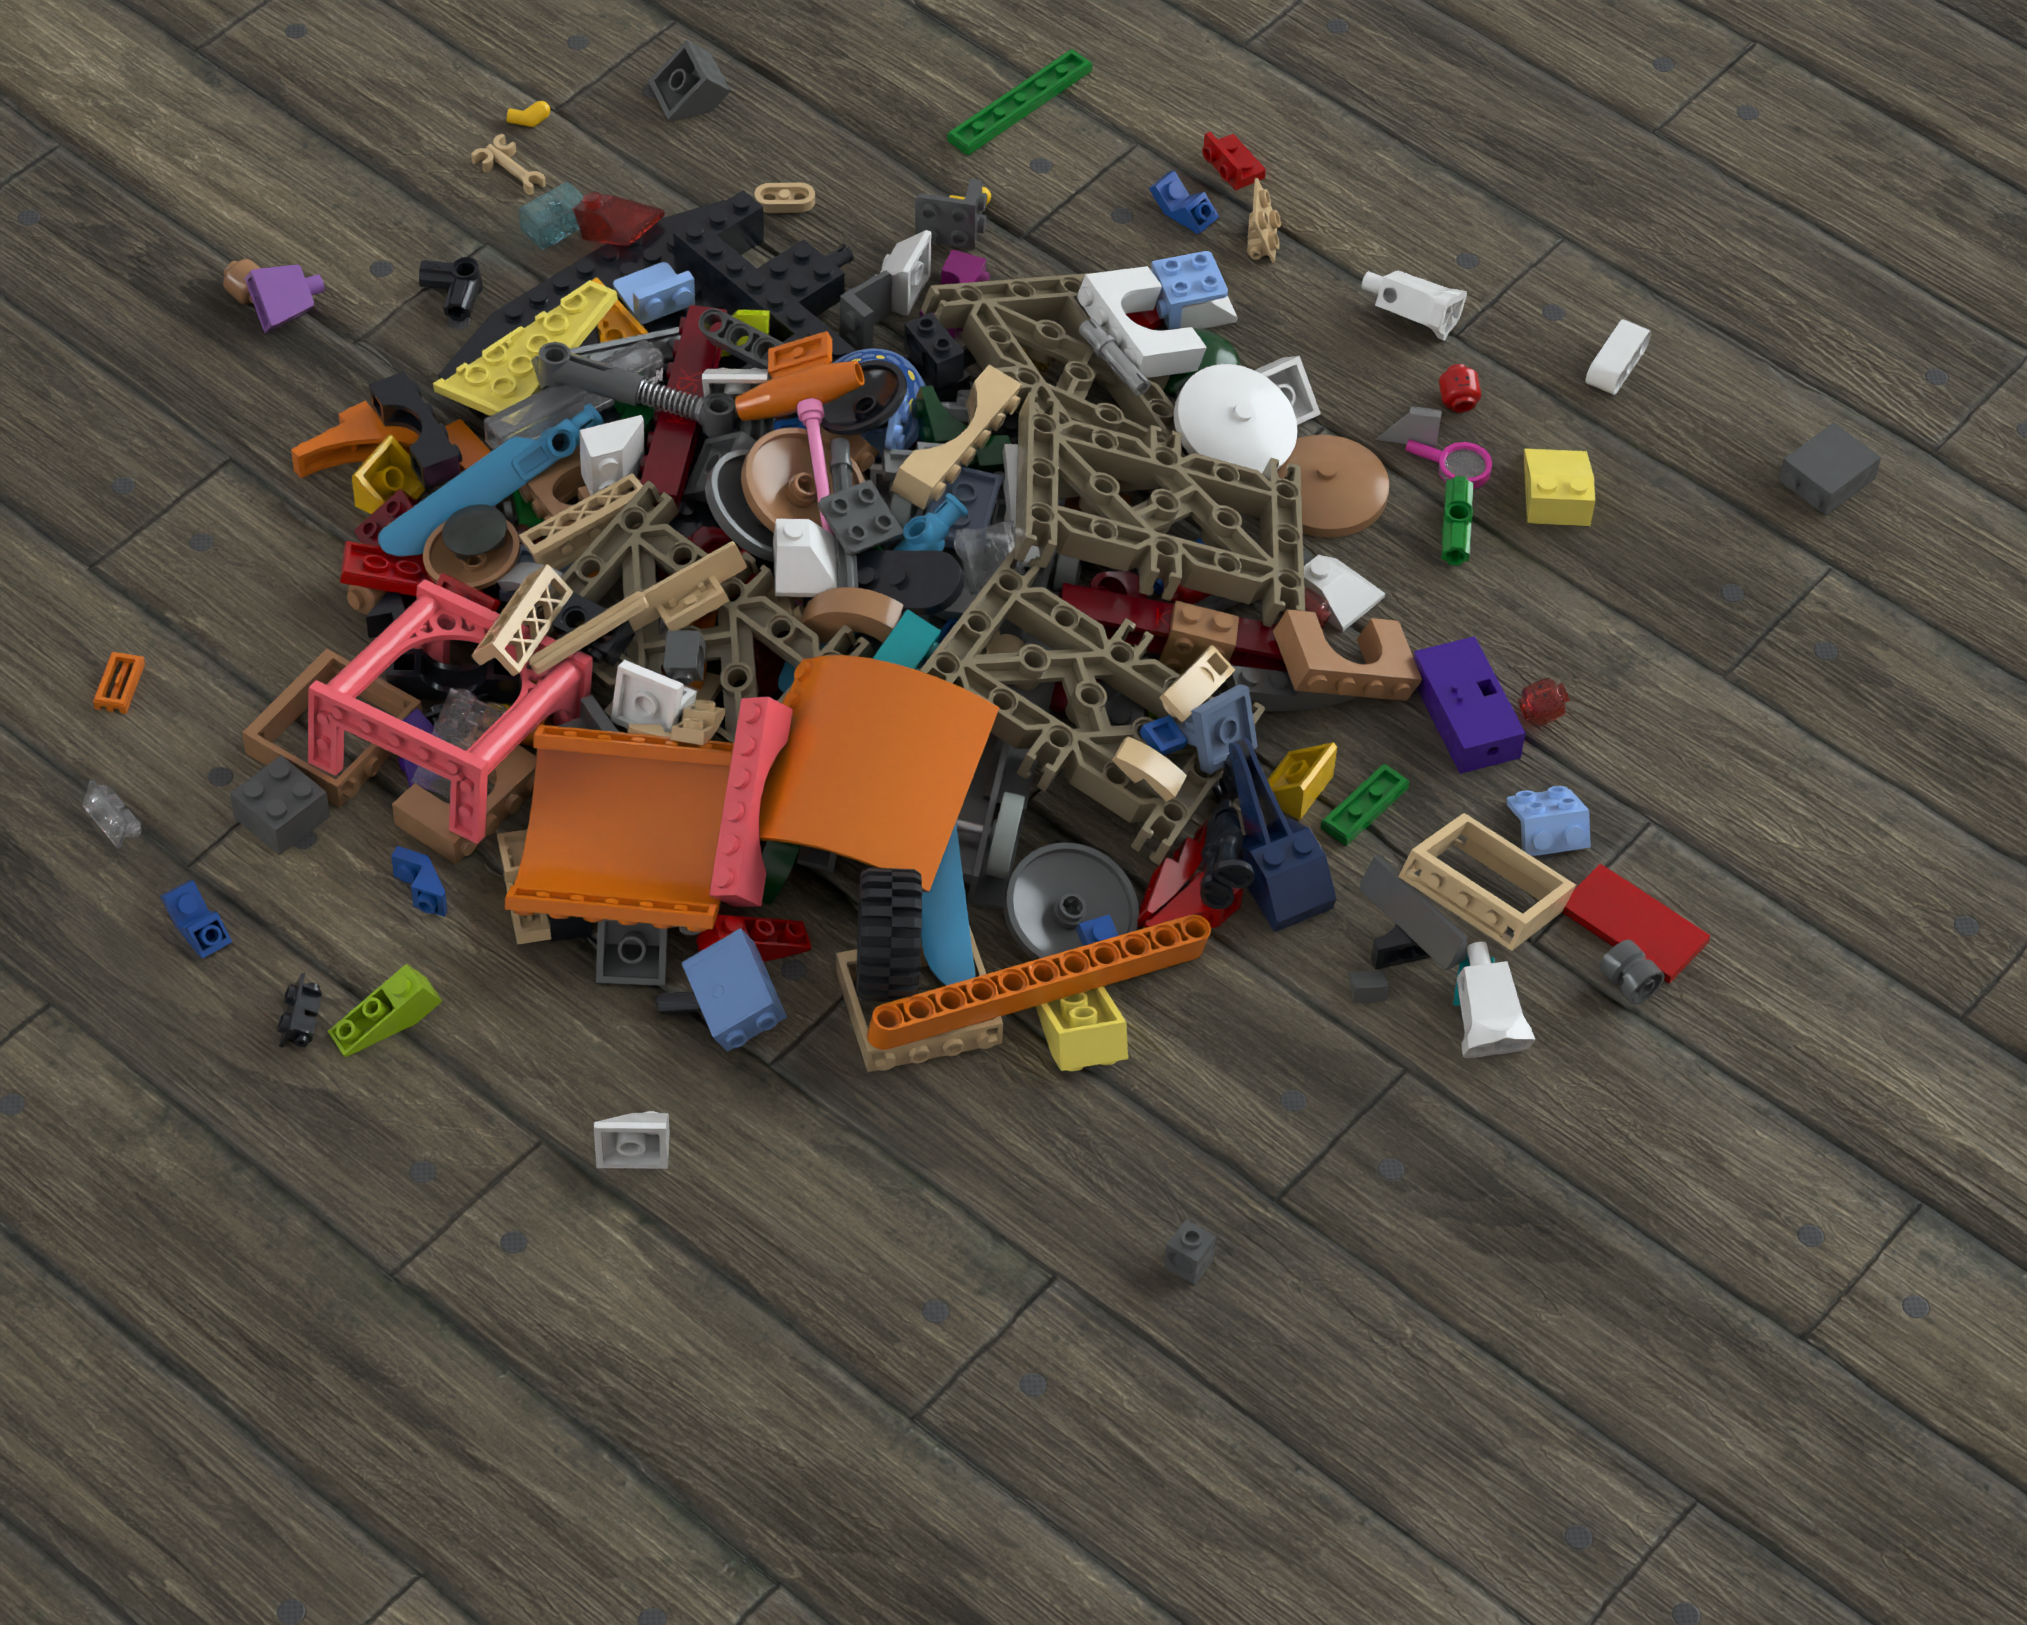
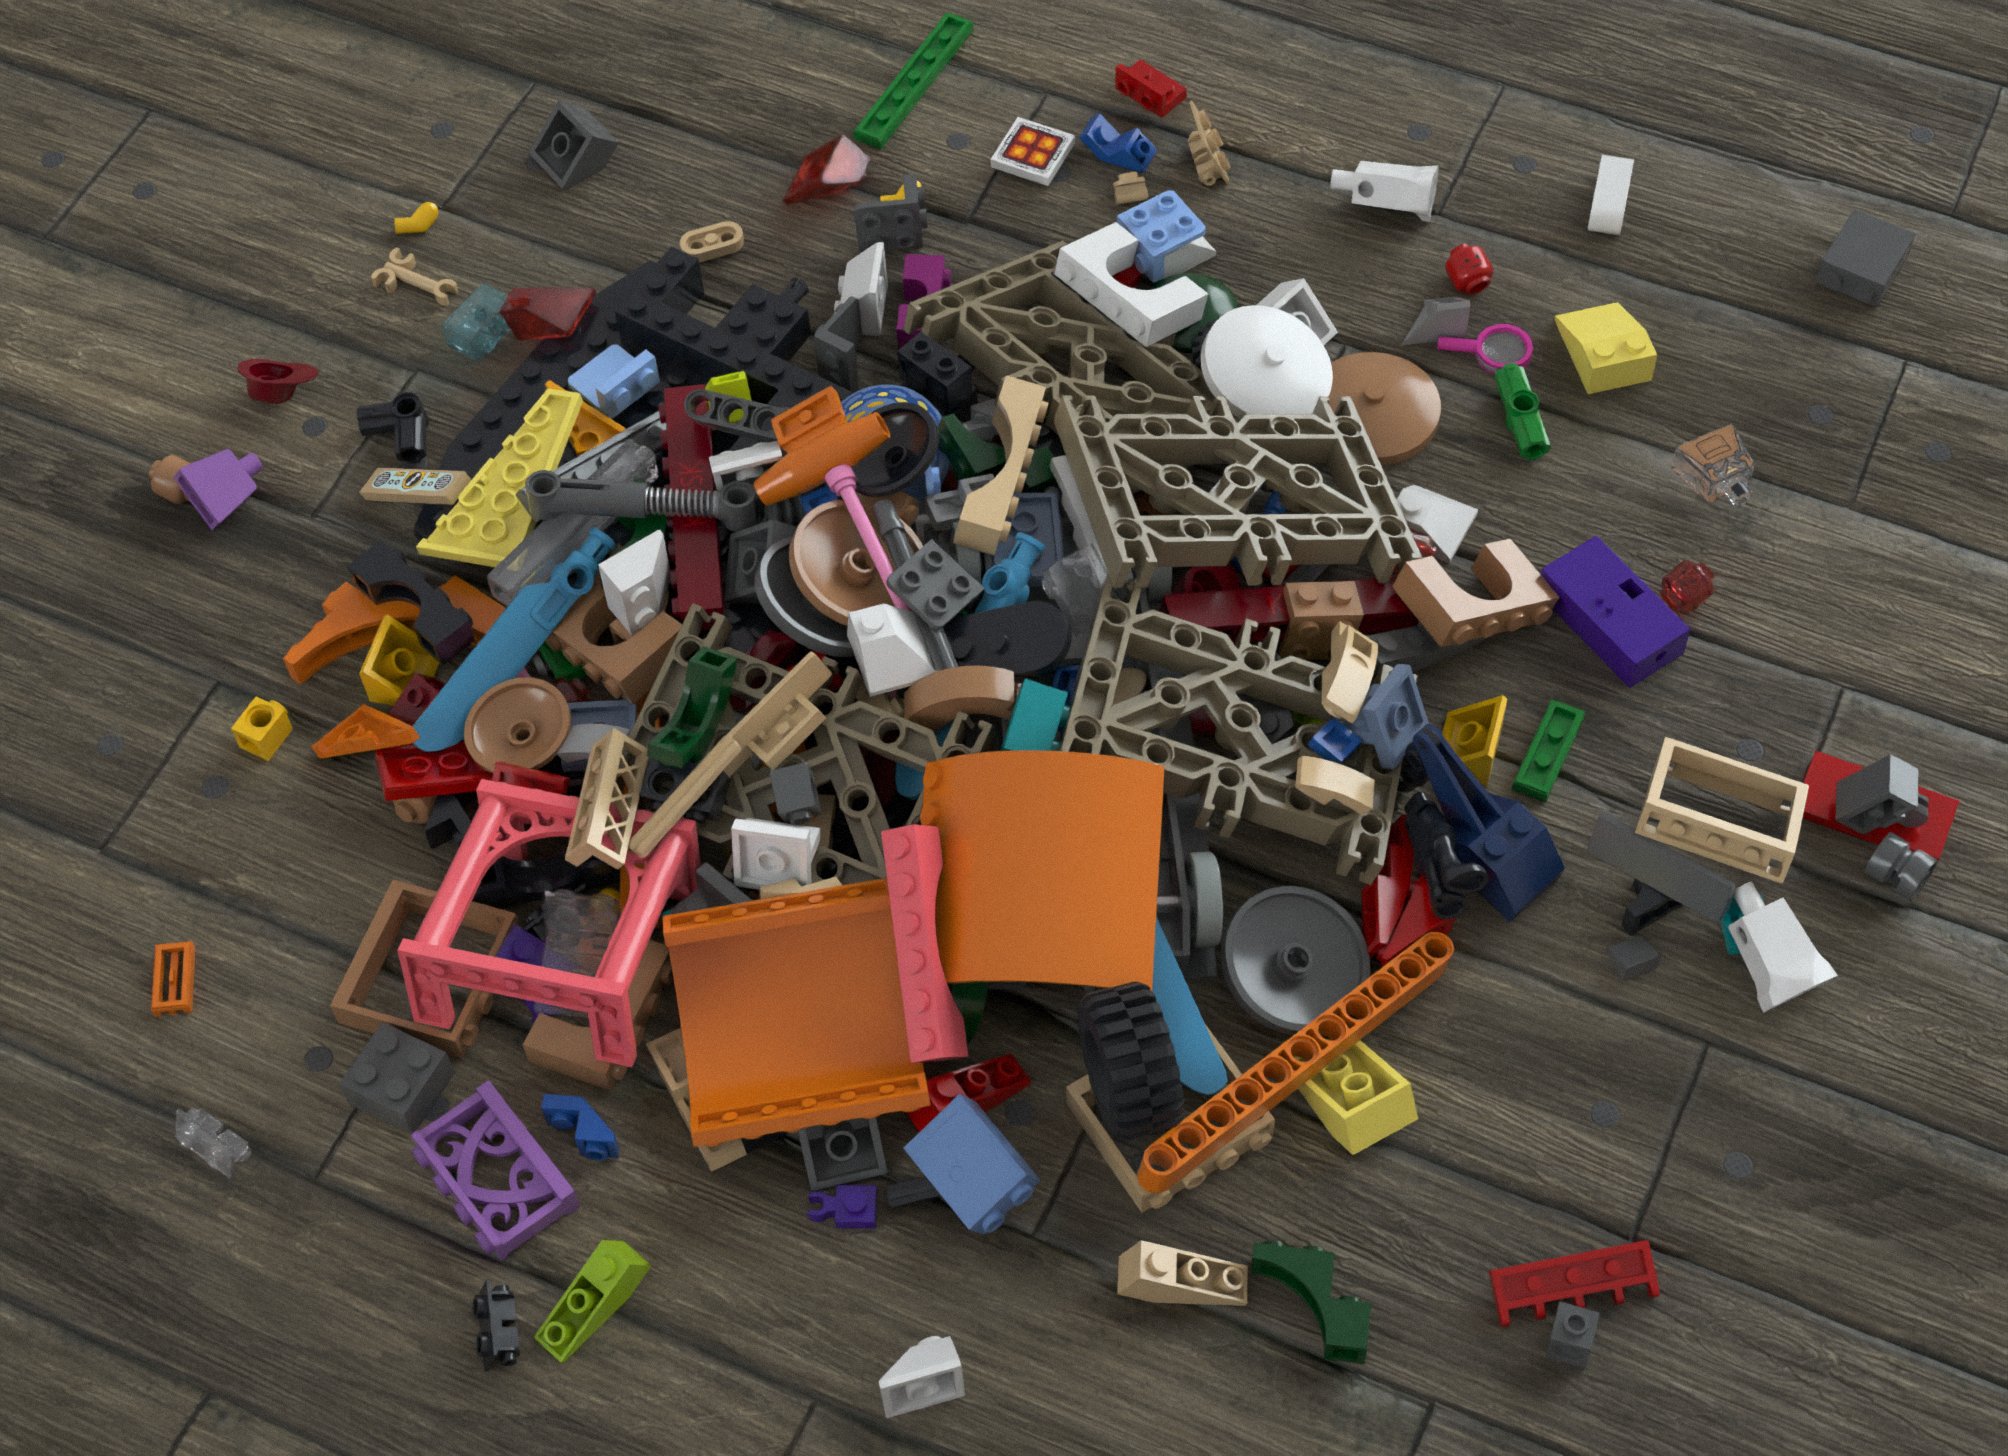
camera: 10 degrees left, 5 degrees up
(194, 921) = (343, 1244): blue slope -> none
(256, 503) = (254, 735): none -> yellow brick
(340, 525) = (364, 731): none -> orange wing
(350, 856) = (496, 1120): none -> medium lavender fence
(356, 219) = (274, 380): none -> dark red piece
(450, 336) = (415, 486): none -> tile
(474, 531) = (514, 703): pearl dark grey dish -> none
(567, 543) = (624, 691): tan fence -> none
(623, 1003) = (852, 1206): none -> dark purple plate
(625, 567) = (699, 709): none -> dark green arch
(698, 723) = (835, 866): tan slope -> none
(878, 1124) = (1180, 1277): none -> tan slope
(911, 162) = (828, 170): none -> clear red slope
(989, 1152) = (1309, 1274): none -> dark green arch
(1096, 930) = (1335, 982): blue plate -> none
(1103, 190) = (1032, 151): none -> tile
(1106, 348) = (1109, 322): light grey pin -> none
(1179, 243) = (1130, 188): none -> tan plate
(1210, 1211) = (1573, 1277): none -> red hinge
(1551, 820) = (1749, 714): light blue bracket -> none
(1613, 609) = (1716, 465): none -> torso
(1633, 908) = (1881, 796): none -> dark grey brick

